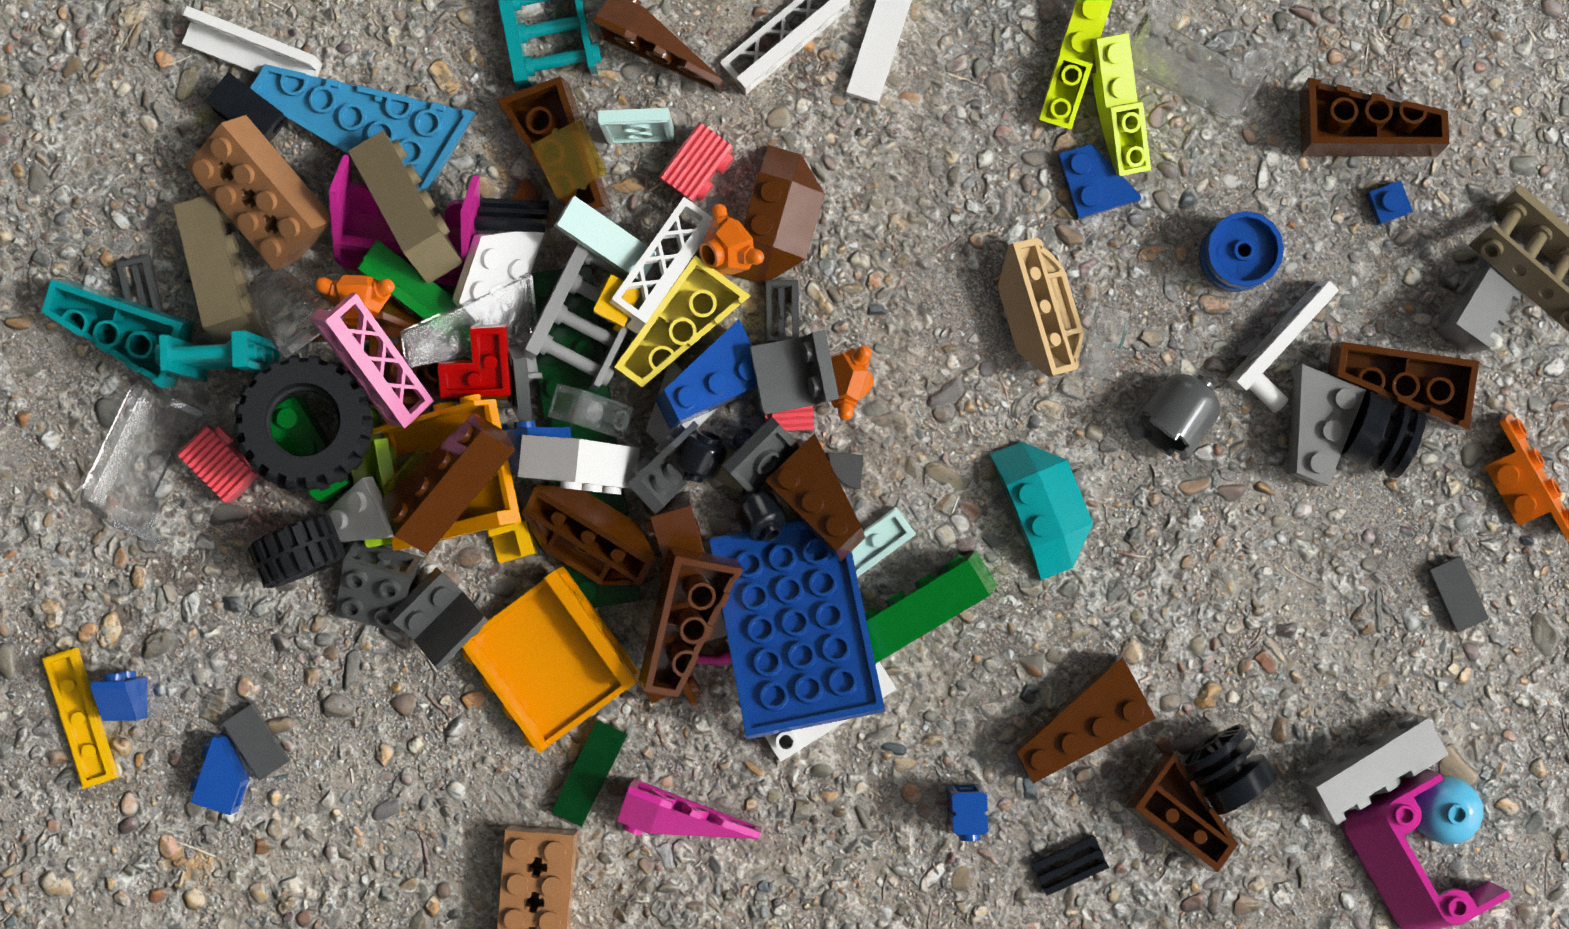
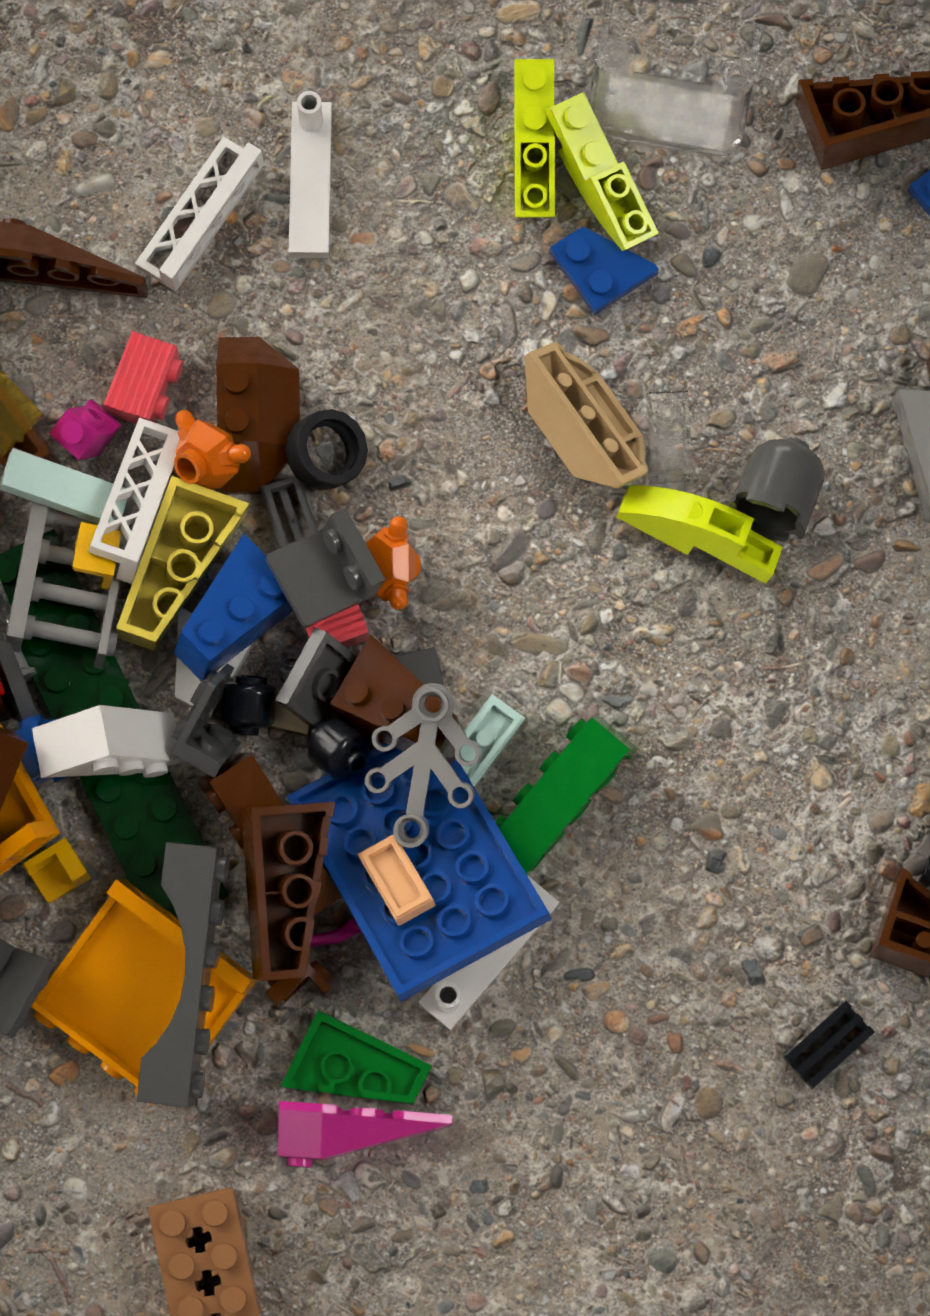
camera: 20 degrees left, 10 degrees down
(589, 535) = (128, 825): reddish brown wedge -> none
(589, 772) = (228, 1115): dark green tile -> none
(590, 411) = (99, 683): clear slope -> none
(611, 599) = (172, 1065): none -> dark grey arch
(636, 125) = (61, 353): light aqua tile -> none
(638, 192) = (85, 430): none -> dark pink brick
(697, 764) = (354, 1064): none -> green wing
(773, 640) = (396, 880): none -> light nougat tile
(825, 552) = (424, 757): none -> light grey plant
(850, 268) = (350, 434): none -> black tyre
(967, 811) = (686, 1013): blue brick -> none
(1044, 505) = (662, 641): teal wedge -> none
(1090, 719) = (795, 863): reddish brown wedge -> none
(1108, 424) = (692, 520): none -> neon yellow slope
(1240, 231) = (788, 290): blue wheel -> none
(1250, 372) = (845, 421): white piece -> none

